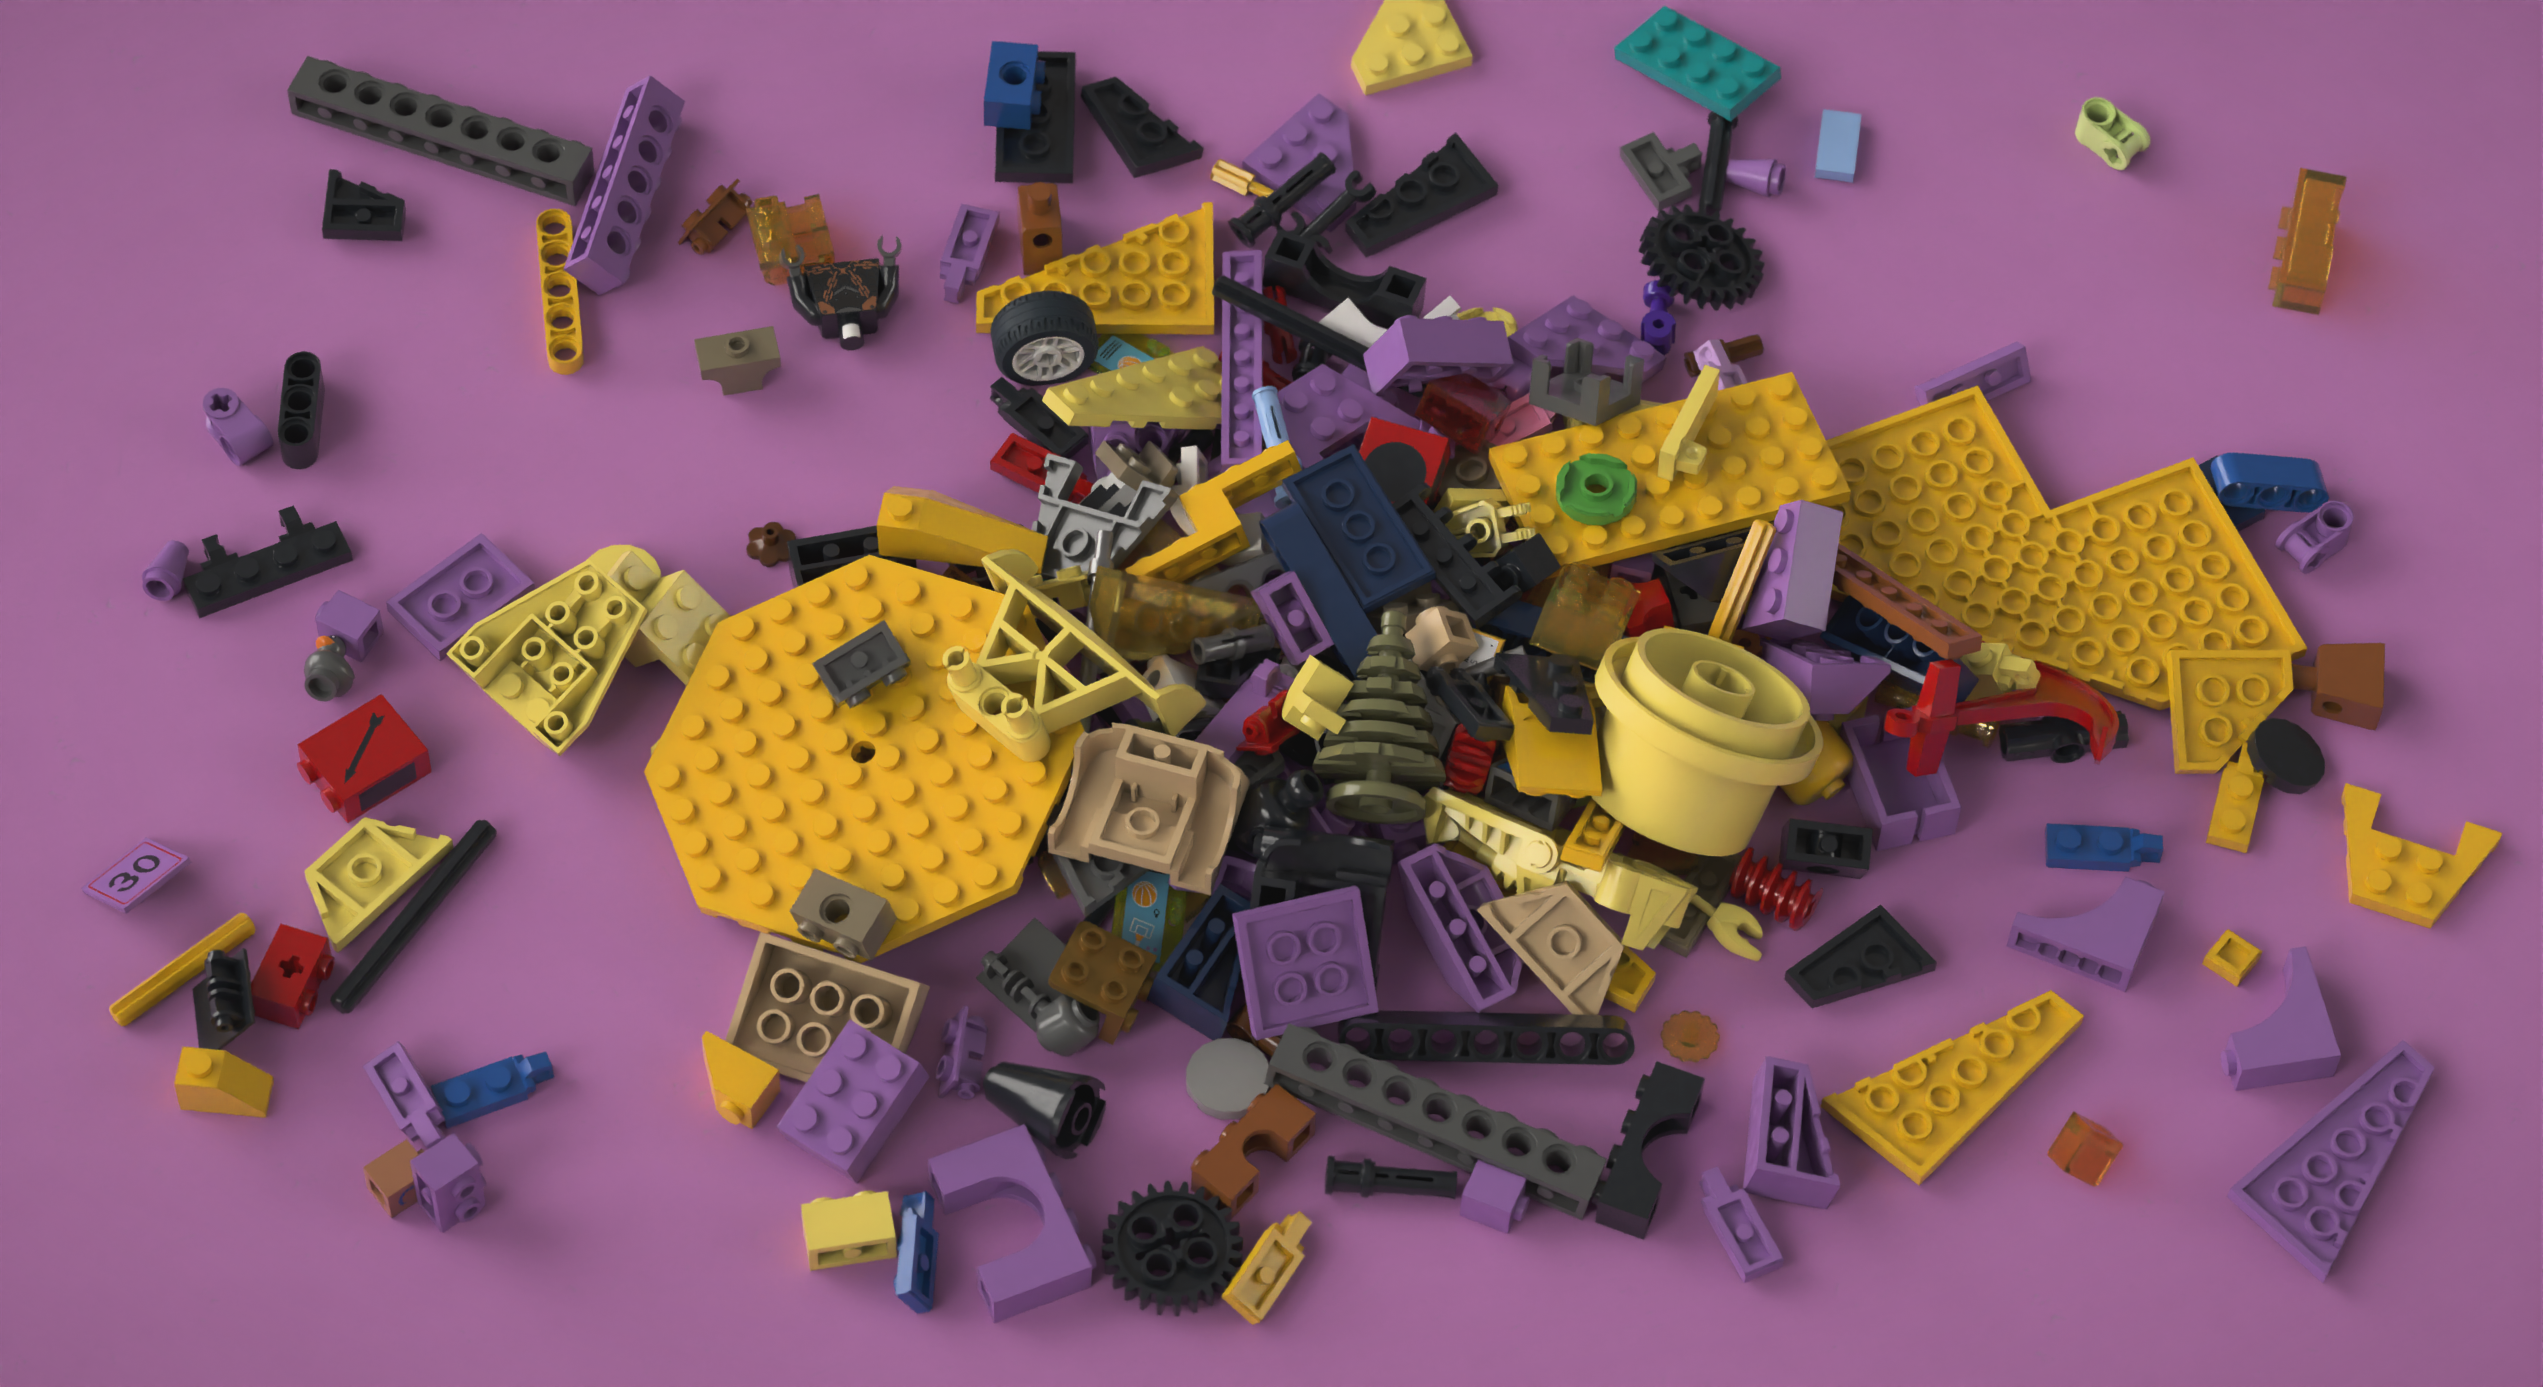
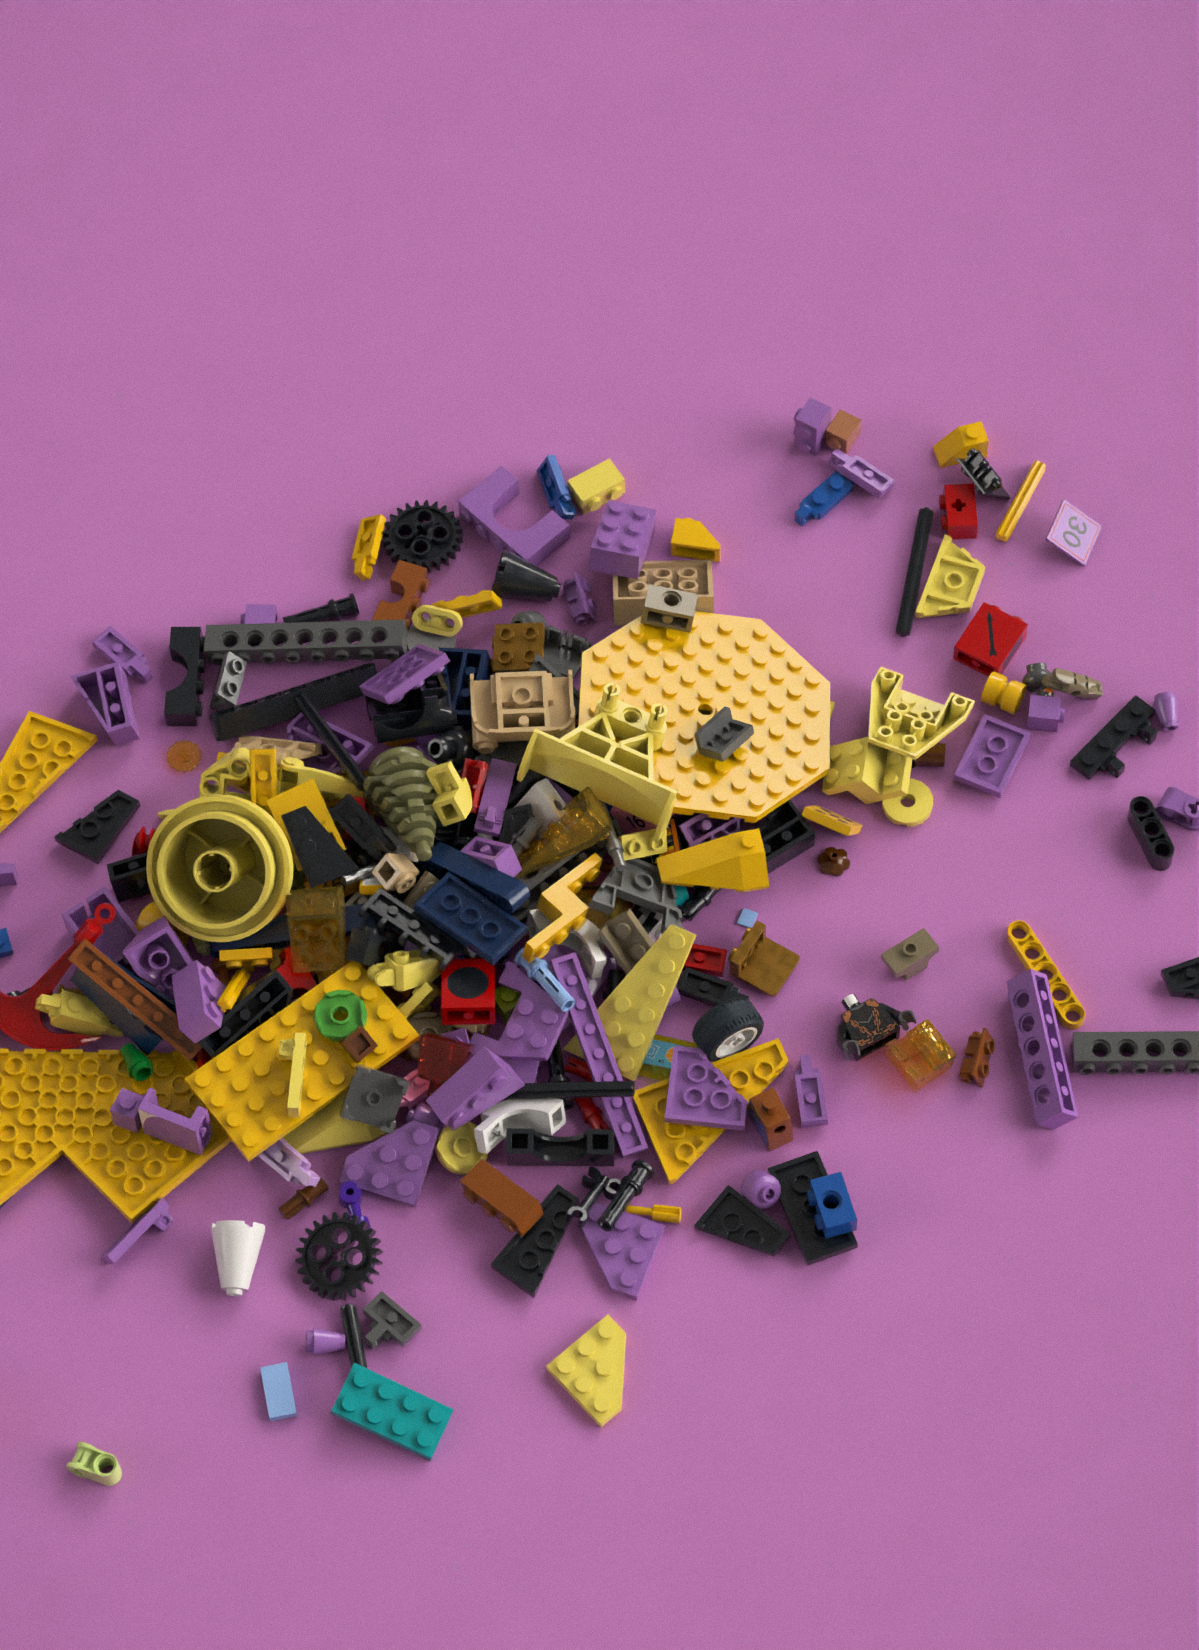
camera: 165 degrees right, 5 degrees up
(283, 639) = (1073, 684): none -> dark tan hinge
(391, 669) = (1000, 691): none -> yellow wheel
(748, 563) = (831, 820): none -> yellow tile
(947, 431) = (762, 961): none -> pearl gold bracket
(1095, 147) = (761, 1189): none -> medium lavender head
(1120, 275) = (702, 1093): none -> medium lavender plate
(1152, 1094) = (472, 605): none -> yellow hinge
(1199, 1073) = (438, 620): none -> light yellow plate
(1452, 246) = (501, 1198): none -> dark orange brick
(1460, 896) = (331, 741): none -> black axle
(1584, 438) = (358, 1044): none -> reddish brown tile
(1585, 1102) = (228, 682): none -> dark grey bracket
(1838, 309) = (236, 1253): none -> white cone
(1885, 448) = (172, 1127): none -> medium lavender panel
(1908, 569) = (137, 1064): none -> green cone
(1939, 506) = (125, 1111): none -> medium lavender brick

